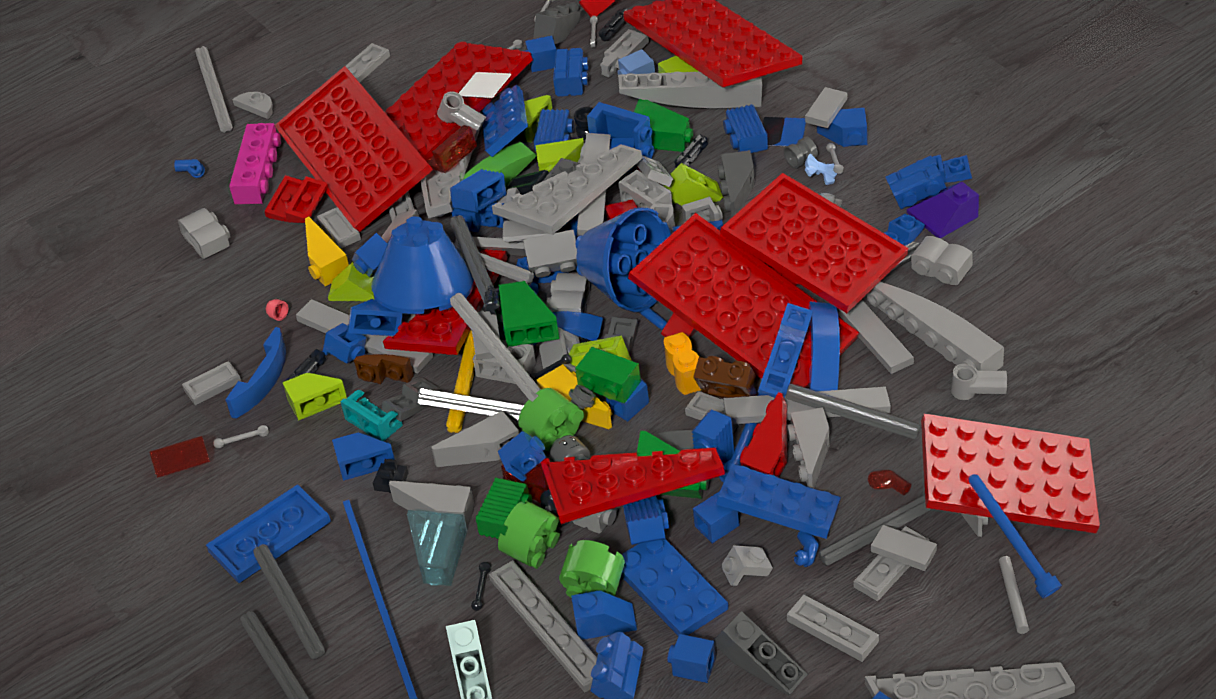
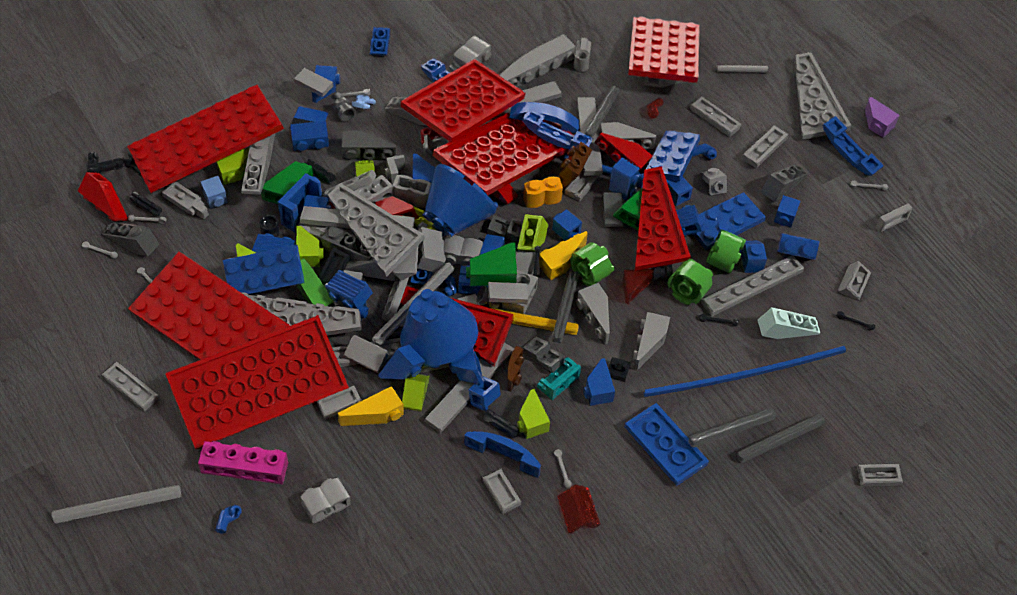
camera: 95 degrees left, 10 degrees up
(256, 103) = (152, 467): light grey plate -> none
(277, 309) = (429, 444): coral hinge -> none
(295, 199) = (300, 430): red slope -> none
(437, 544) = (689, 340): clear light blue slope -> none
(453, 150) = (292, 306): clear red panel -> none
(454, 110) = (256, 293): light grey piece -> none
(472, 256) = (453, 293): dark grey axle -> none
(484, 84) = (216, 281): white sticker -> none
(491, 300) = (482, 281): black axle -> none
(495, 346) = (531, 282): light grey axle -> none
(498, 504) = (659, 299): green brick -> none
(522, 455) = (636, 271): blue brick -> none
(542, 53) = (168, 249): blue brick -> none
(568, 447) = (620, 258): dark grey head -> none
(570, 72) = (201, 234): blue brick -> none
(582, 396) = (580, 239): dark grey plate -> none
(608, 374) = (564, 223): green brick -> none
(869, 532) = (688, 115): dark grey axle -> none
(904, 547) = (712, 105): light grey tile -> none
(916, 182) = (398, 52): blue brick -> none
(947, 209) = (420, 45): dark purple slope -> none
(1045, 581) = (739, 52): blue piece -> none

